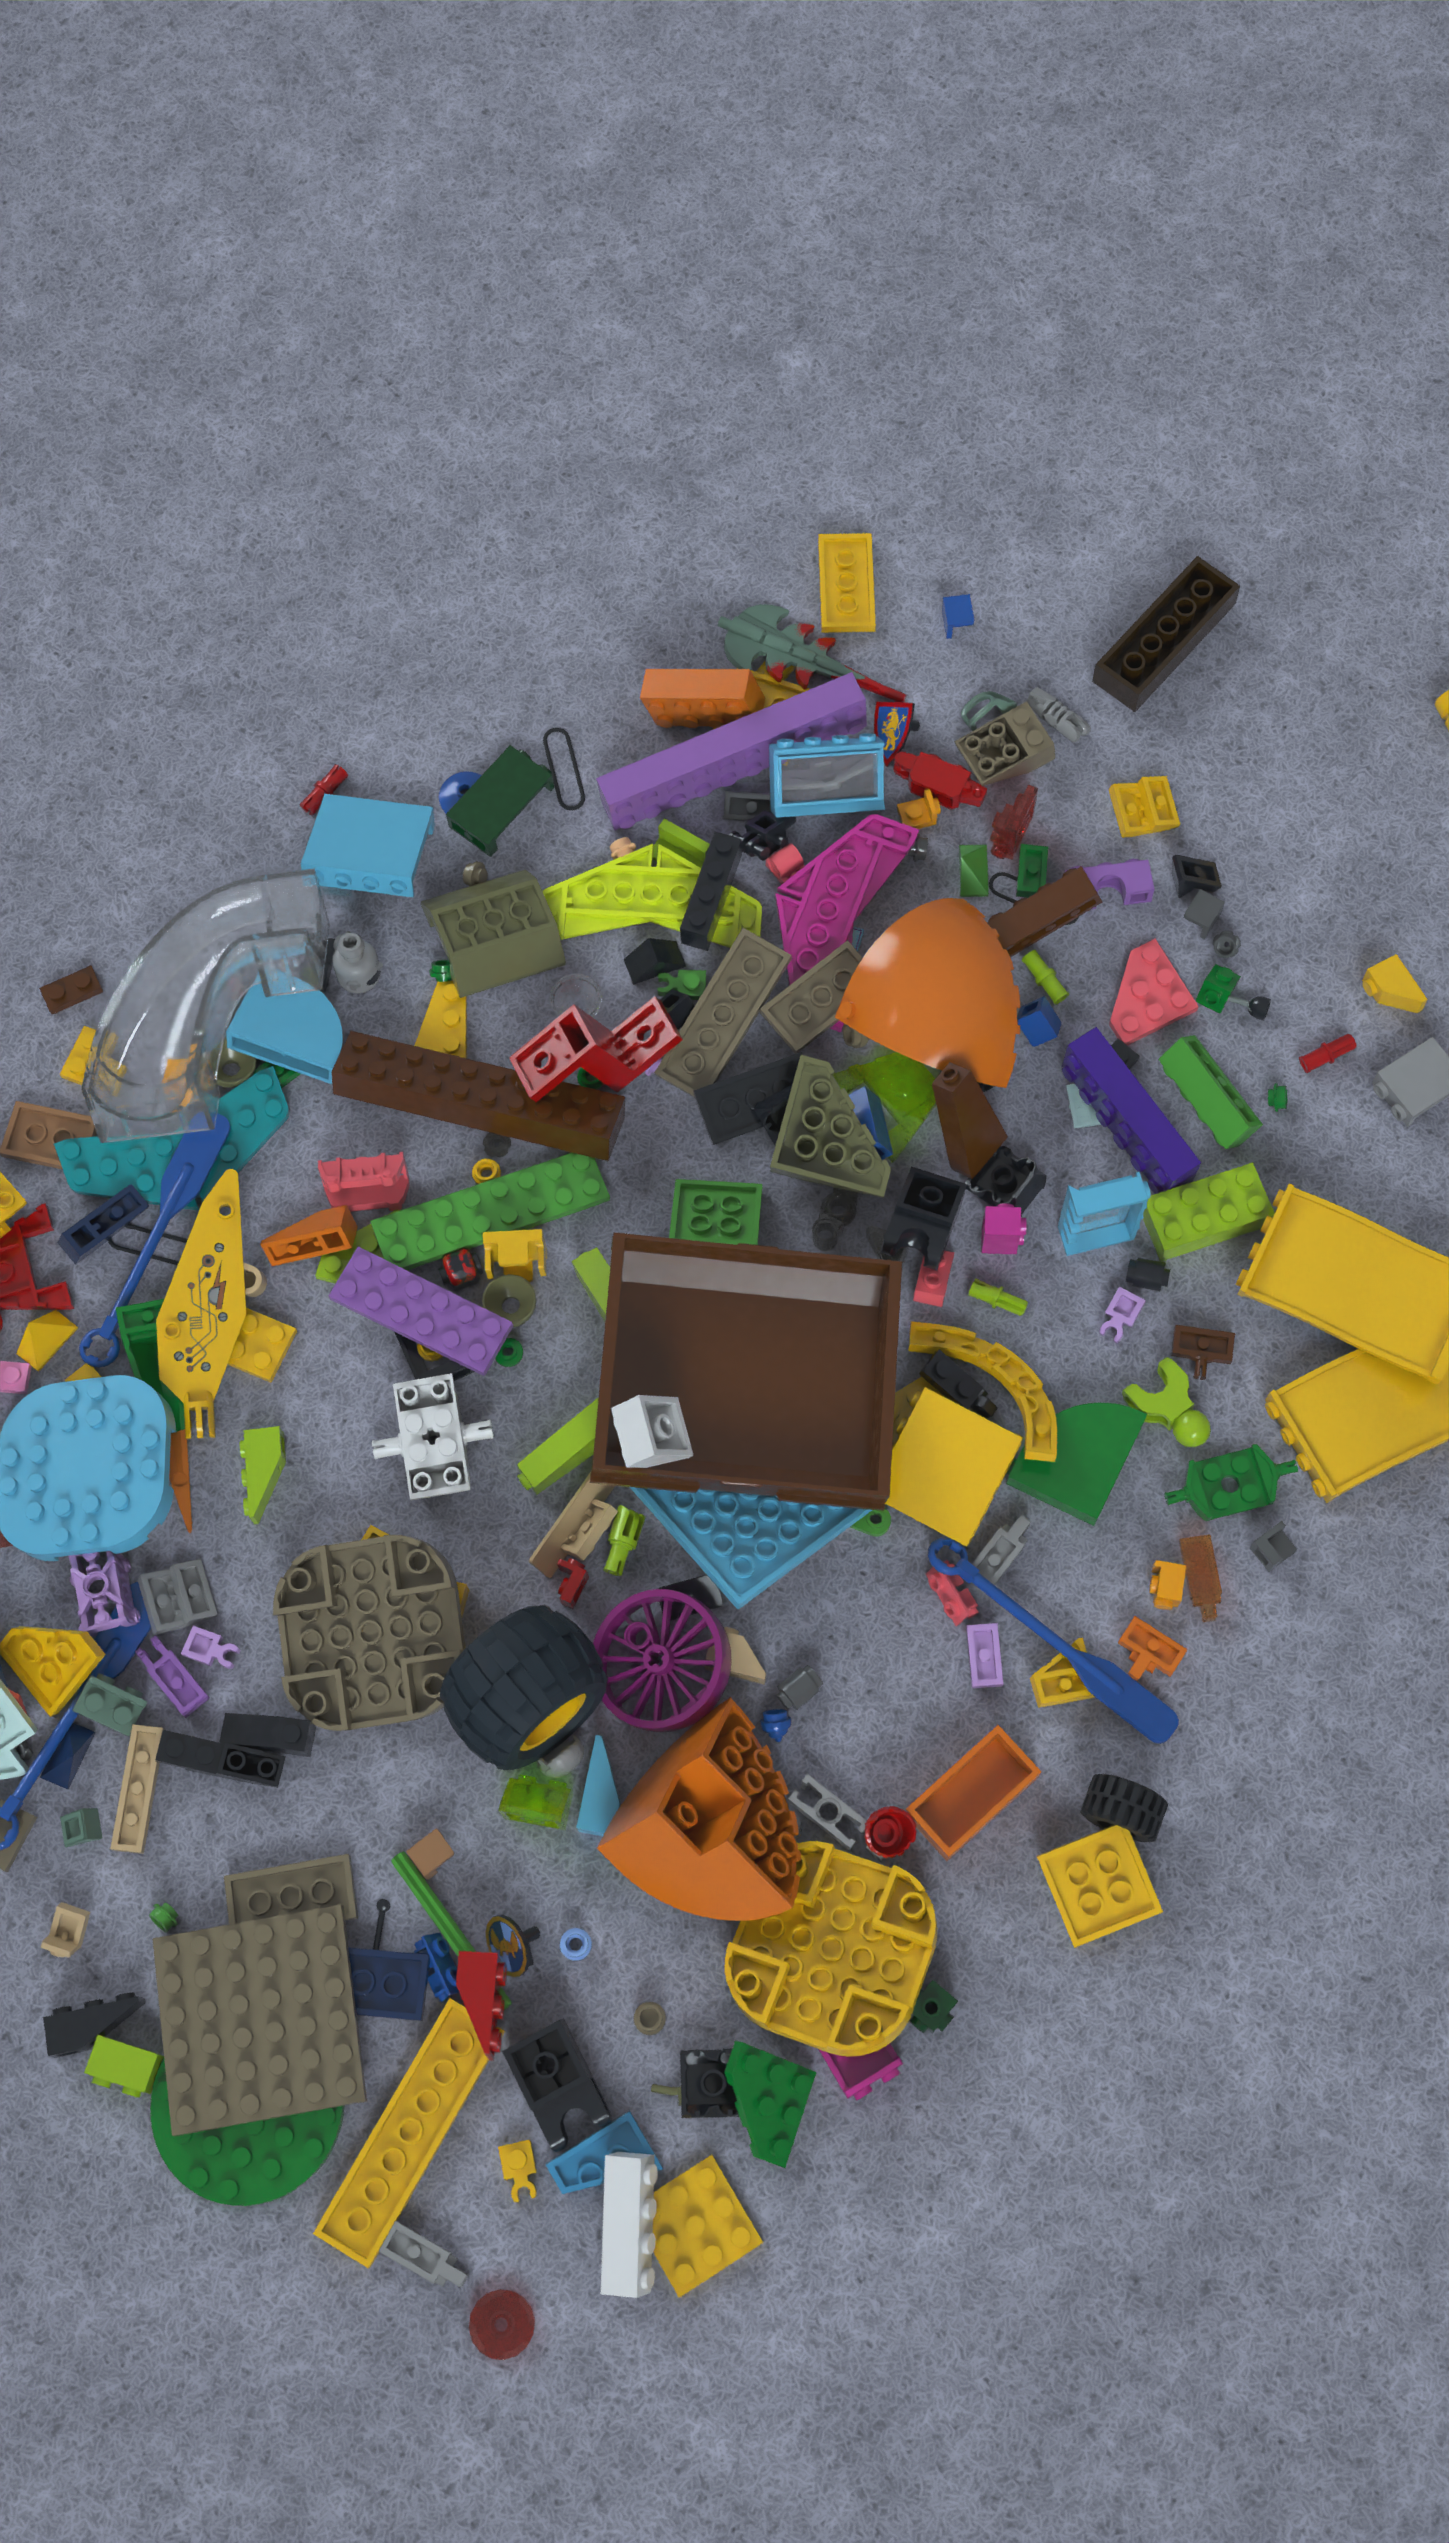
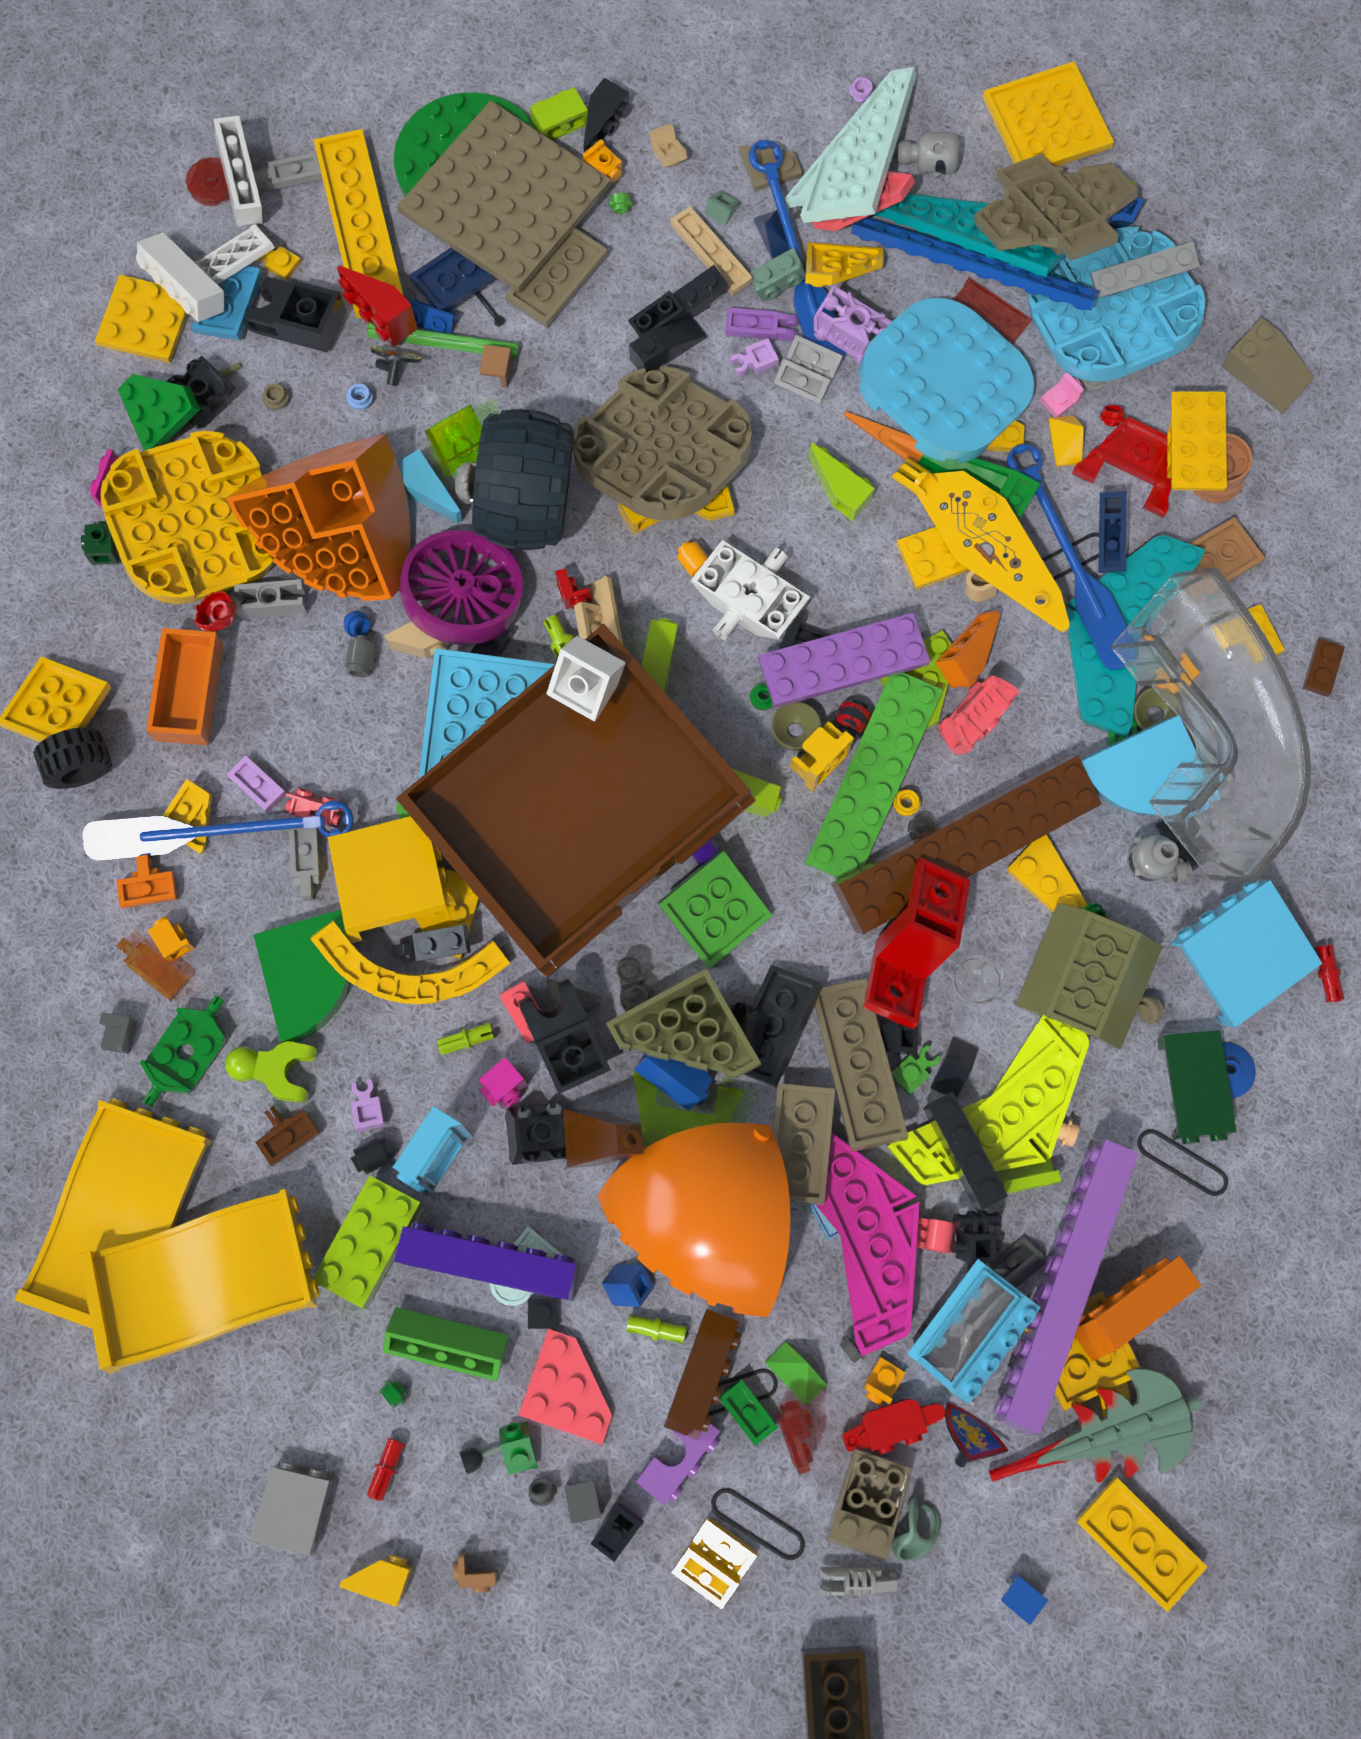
camera: 130 degrees right, 5 degrees up
(145, 1980) = (603, 161): none -> light orange brick
(445, 1514) = (691, 557): none -> light orange brick
(472, 2291) = (238, 171): none -> white brick
(548, 2184) = (244, 258): none -> white window
(1102, 803) = (749, 1534): none -> black piece
(1324, 930) = (479, 1580): none -> medium nougat bracket

